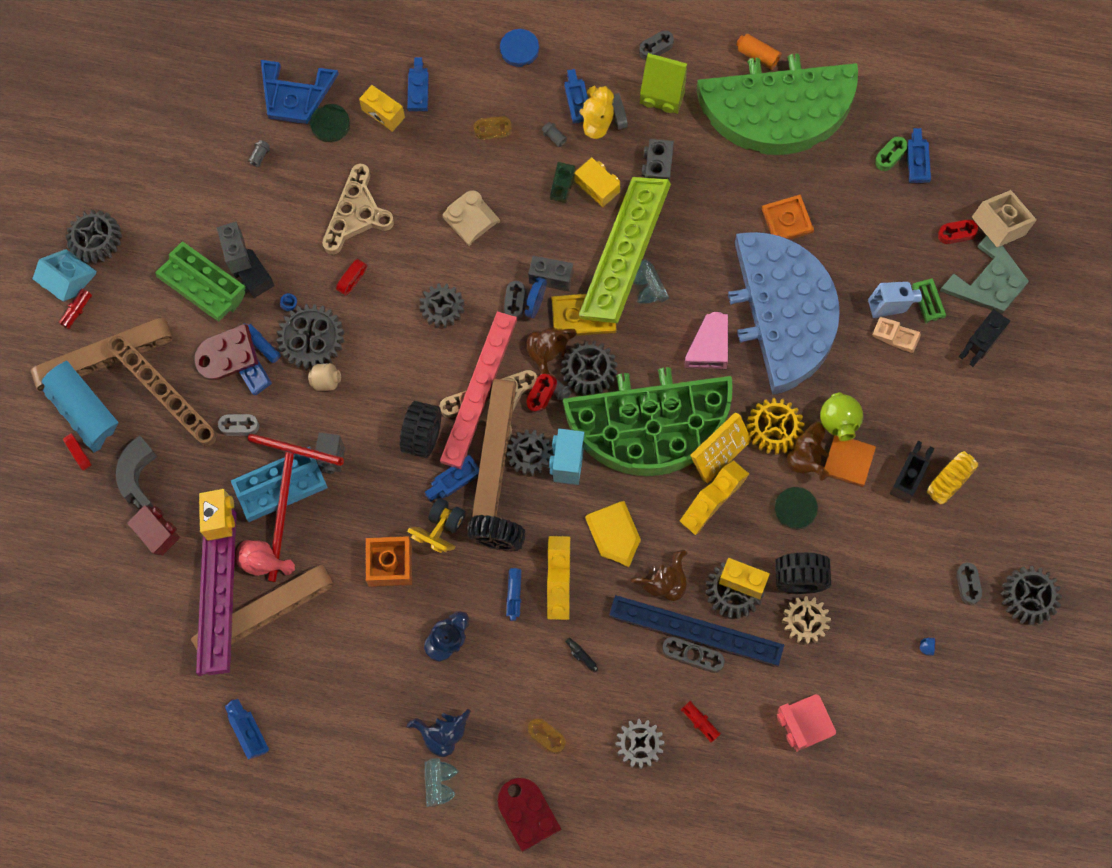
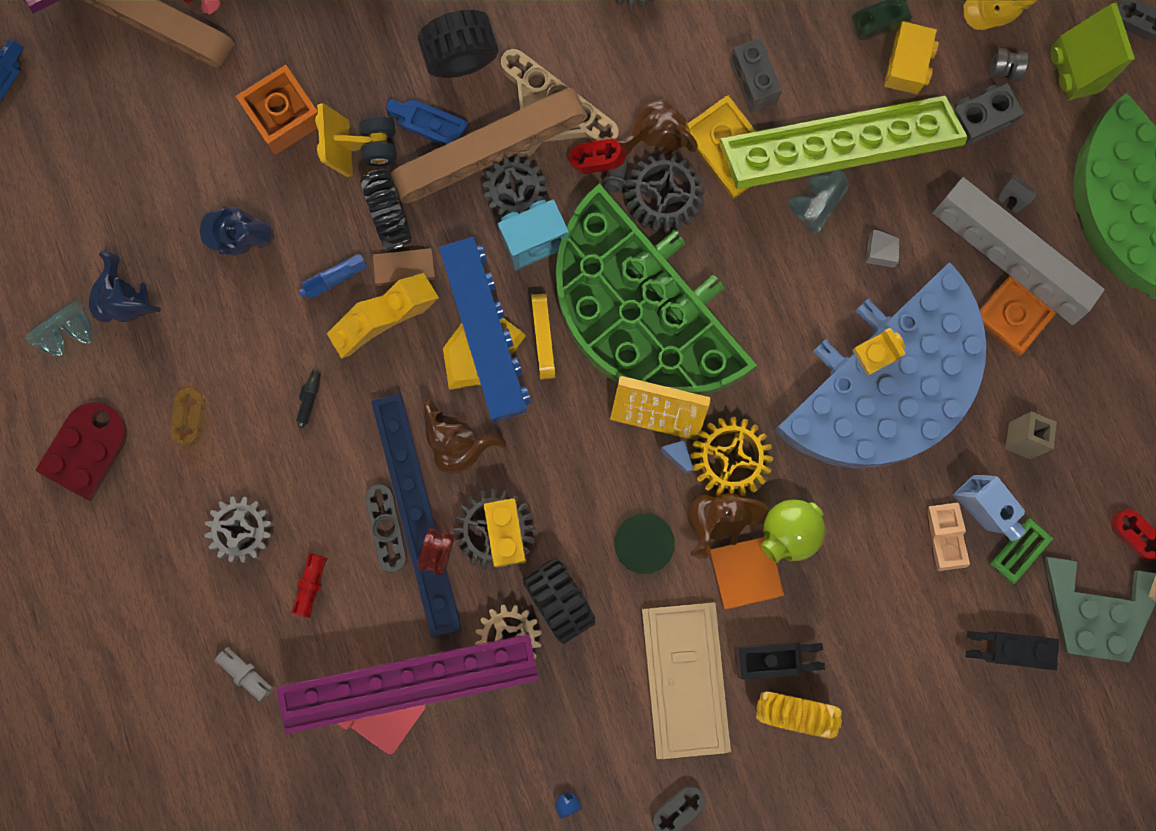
camera: 50 degrees right, 10 degrees up
(478, 390) = (541, 83): coral plate -> none
(510, 300) = (692, 51): dark grey beam -> none
(534, 548) = (403, 264): none -> medium nougat tile
(535, 297) = (710, 75): blue tile -> none
(608, 520) = (483, 329): none -> blue brick
(619, 112) = (1021, 26): dark grey beam -> none
(632, 490) = (543, 336): none -> yellow beam
(636, 131) = (1008, 64): none -> flat silver wheel
(702, 267) = (882, 249): none -> light grey slope
(710, 344) = (788, 316): bright pink slope -> none
(713, 496) = (594, 436): yellow arch -> none
(716, 171) = (1020, 190): none -> dark grey tile
(729, 627) = (432, 550): none -> clear red wheel
(733, 794) = (244, 674): none -> light grey pin
(752, 194) = (1018, 251): none -> light grey brick
(756, 455) = (678, 455): none -> medium blue slope
(767, 302) = (880, 351): none -> yellow bracket
(801, 690) = (406, 683): none -> magenta plate
(865, 252) = (1031, 435): none -> dark tan brick
(893, 533) = (686, 681): none -> tan piece

